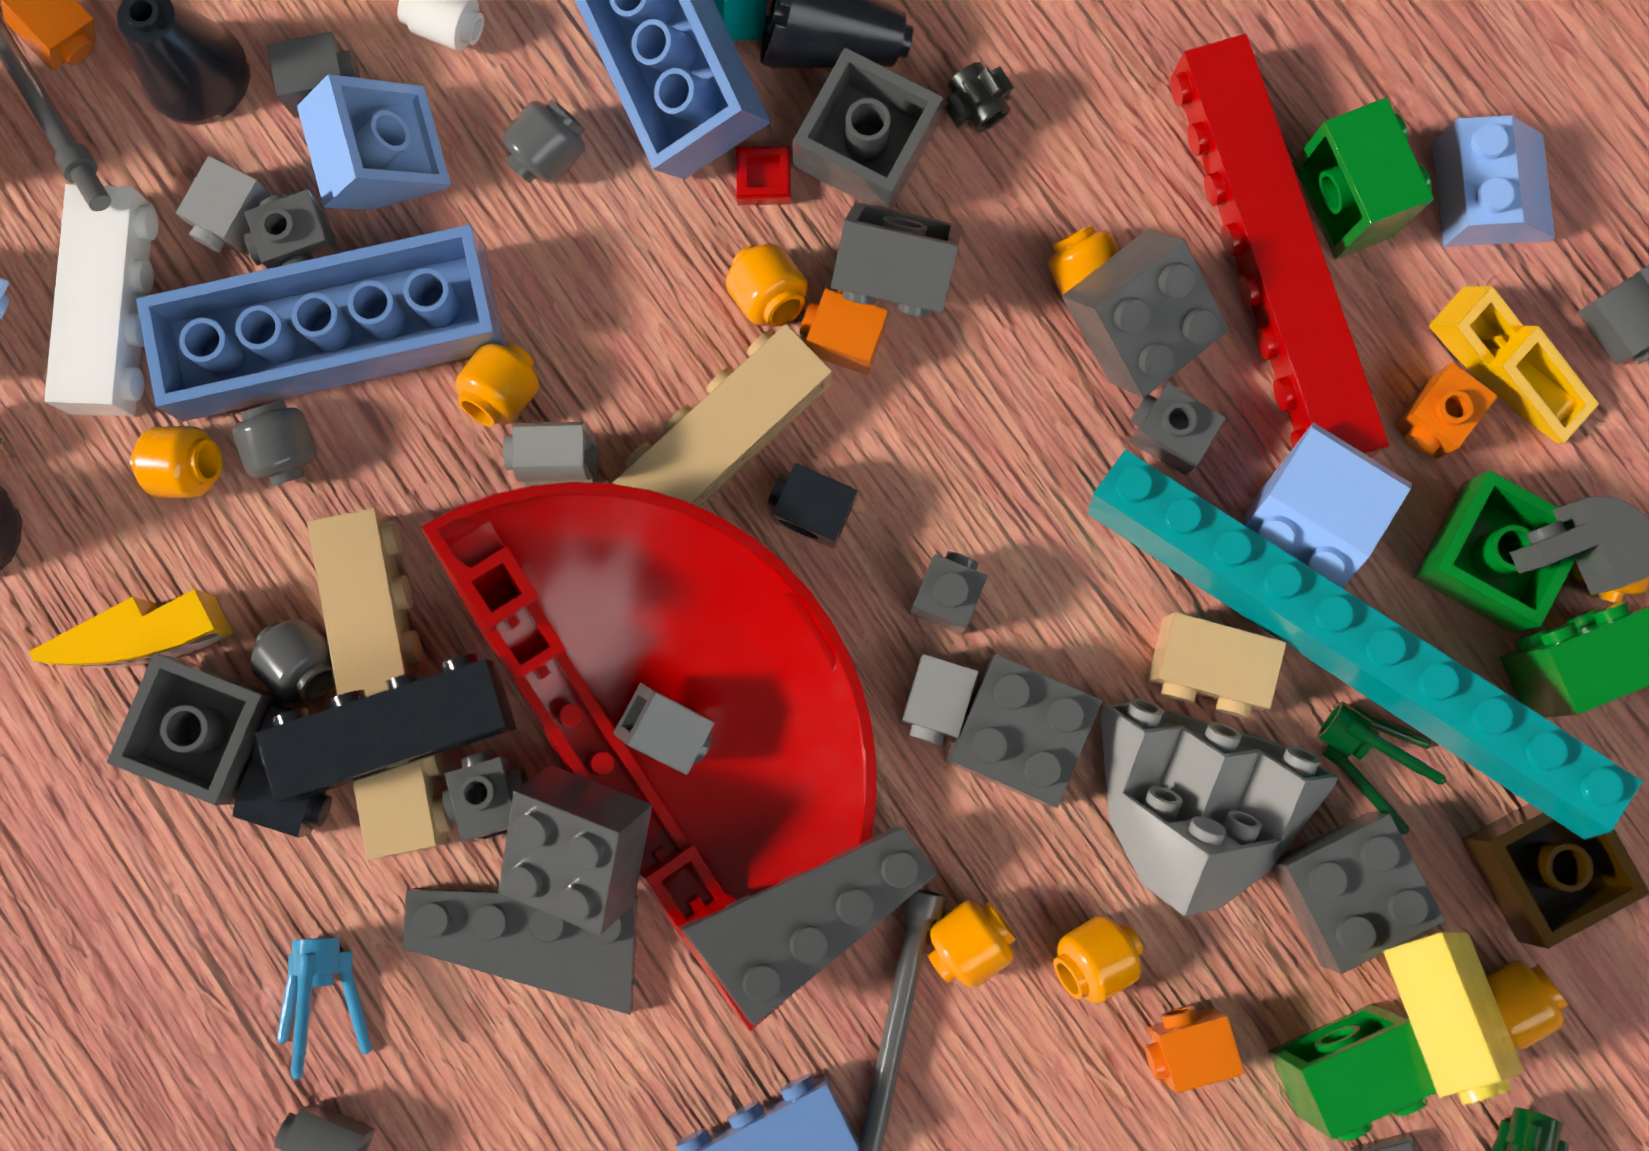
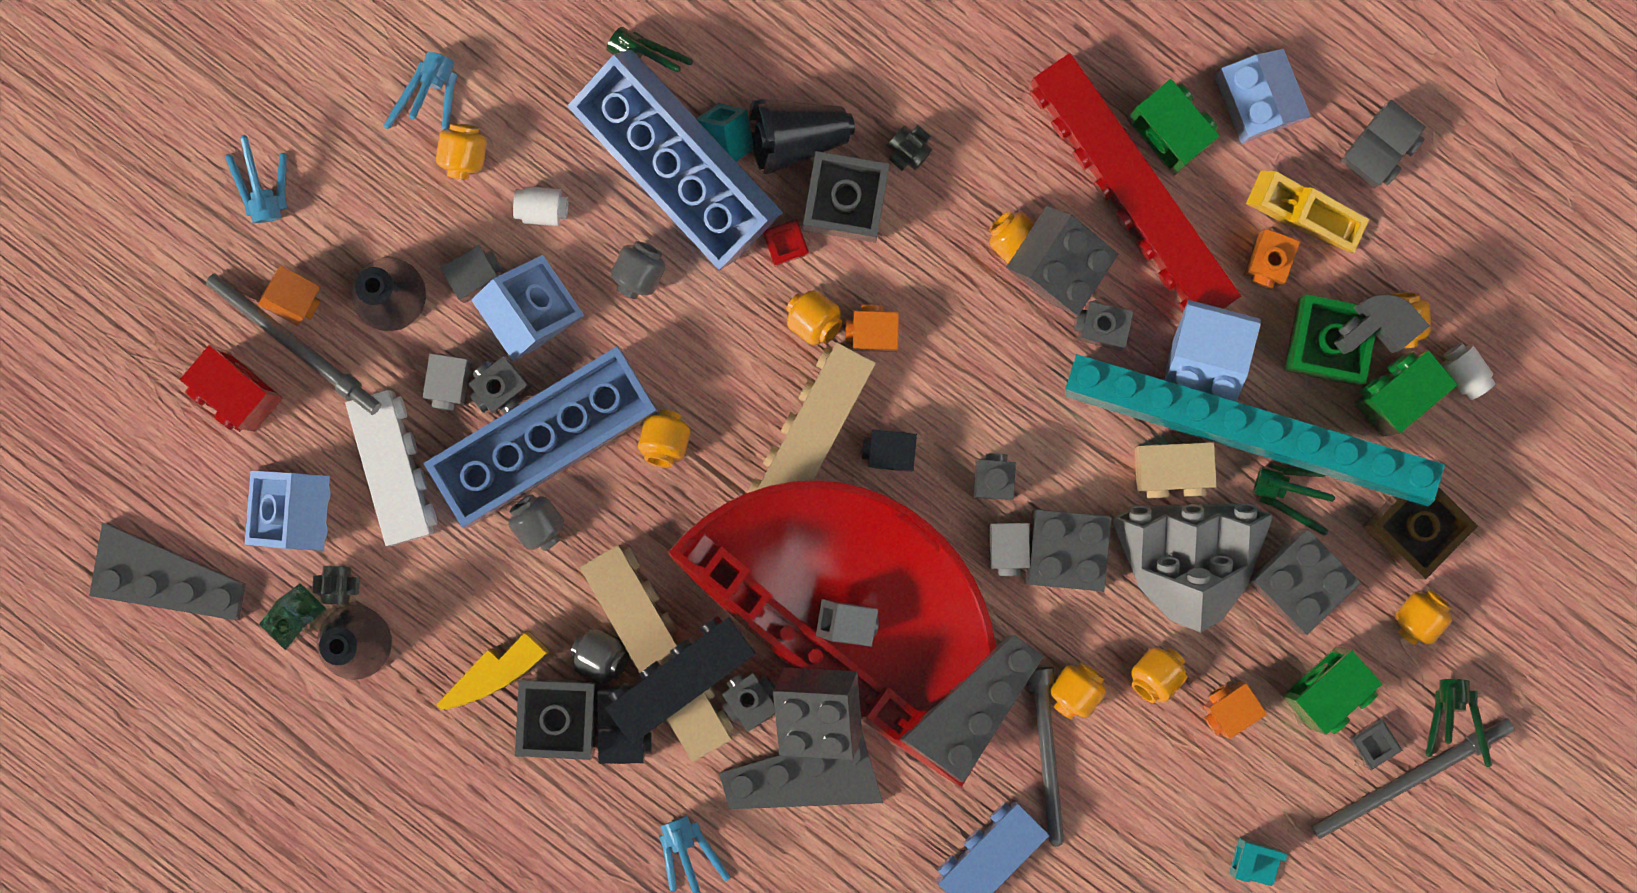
camera: 20 degrees left, 5 degrees up
(176, 462) = (478, 555): light orange head -> none
(551, 453) = (718, 476): light grey brick -> none
(896, 259) = (894, 277): dark grey brick -> none
(1454, 1016) = (1380, 637): light yellow brick -> none

